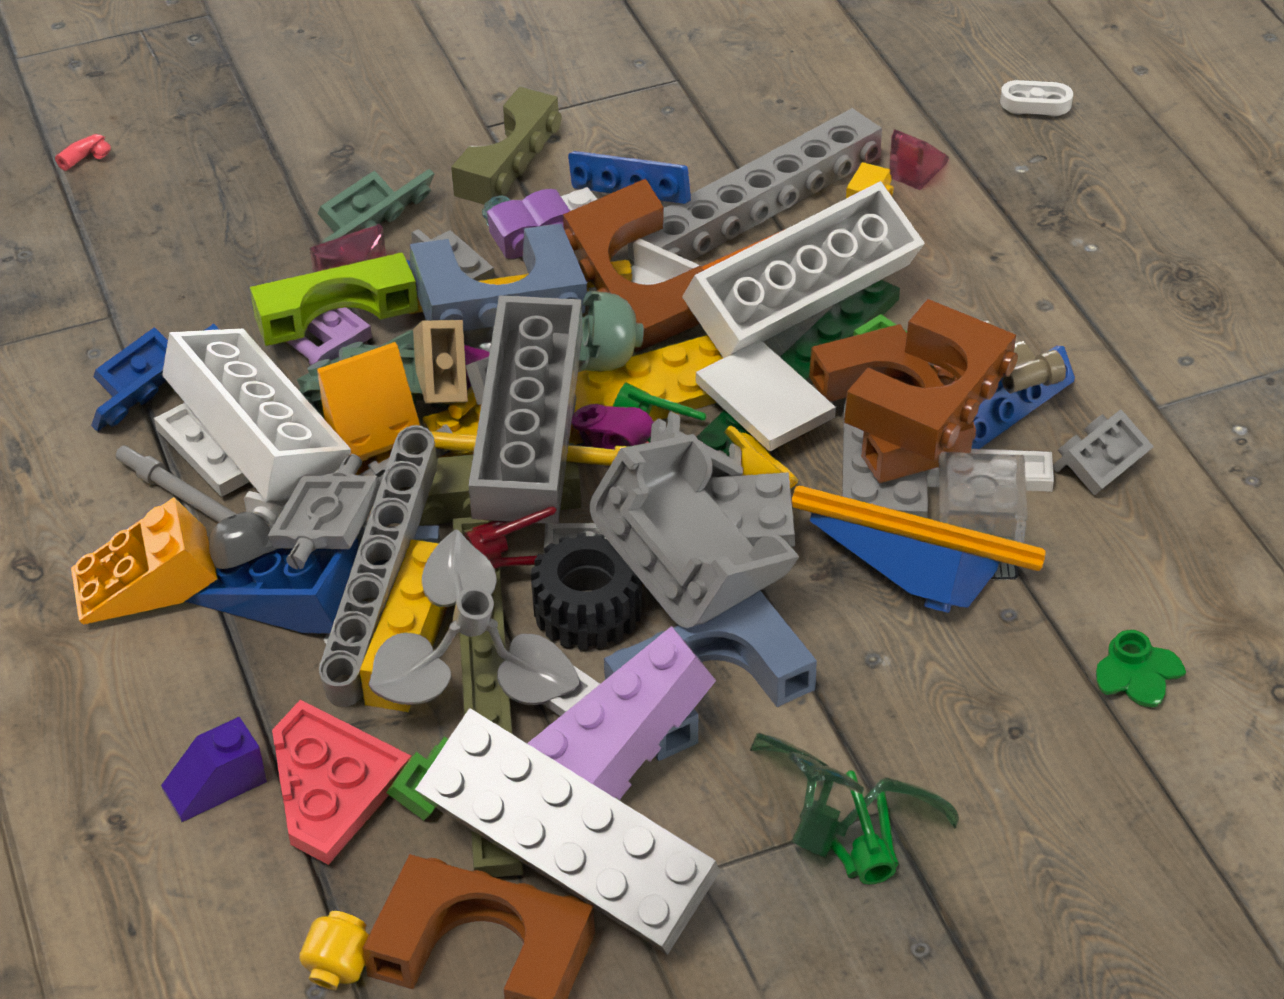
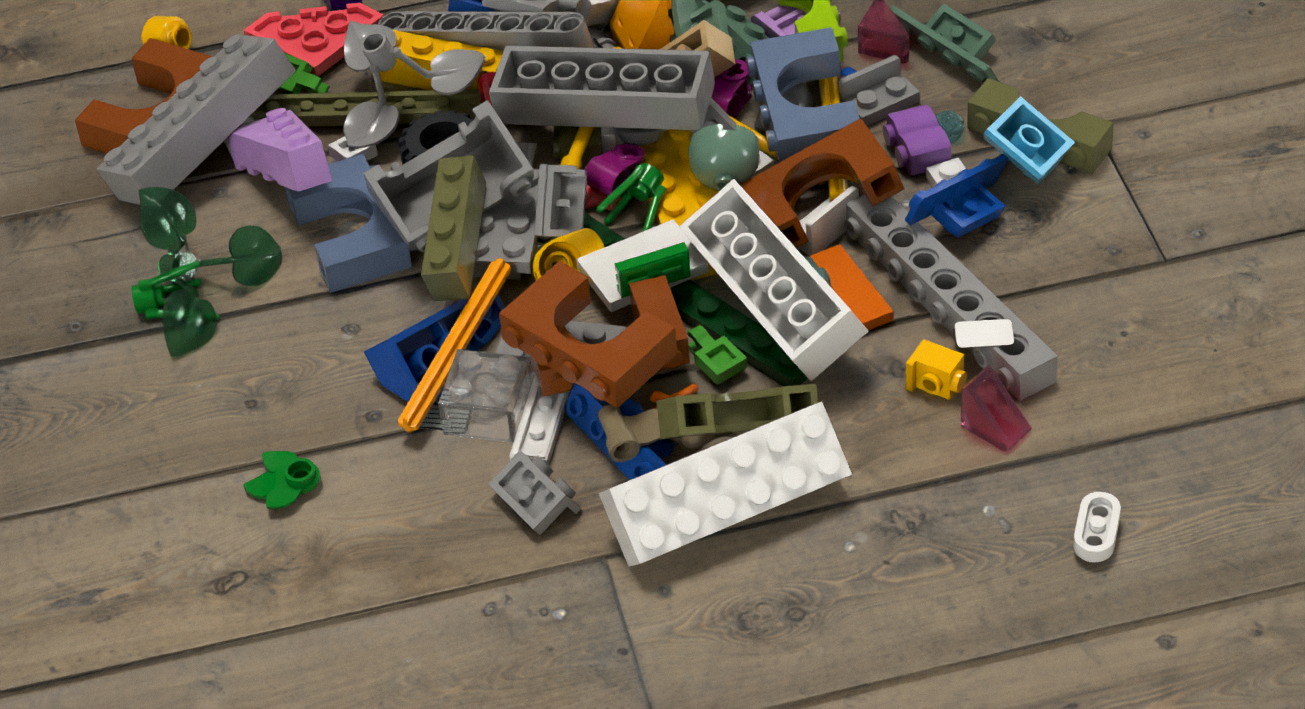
camera: 100 degrees right, 0 degrees up
(556, 131) = (1028, 140): none -> medium azure slope
(751, 508) = (454, 228): none -> olive brick
(801, 361) = (669, 261): none -> green tile
(832, 150) = (984, 333): none -> white sticker
(1009, 302) = (731, 411): none -> olive arch
(1080, 297) = (725, 484): none -> white brick

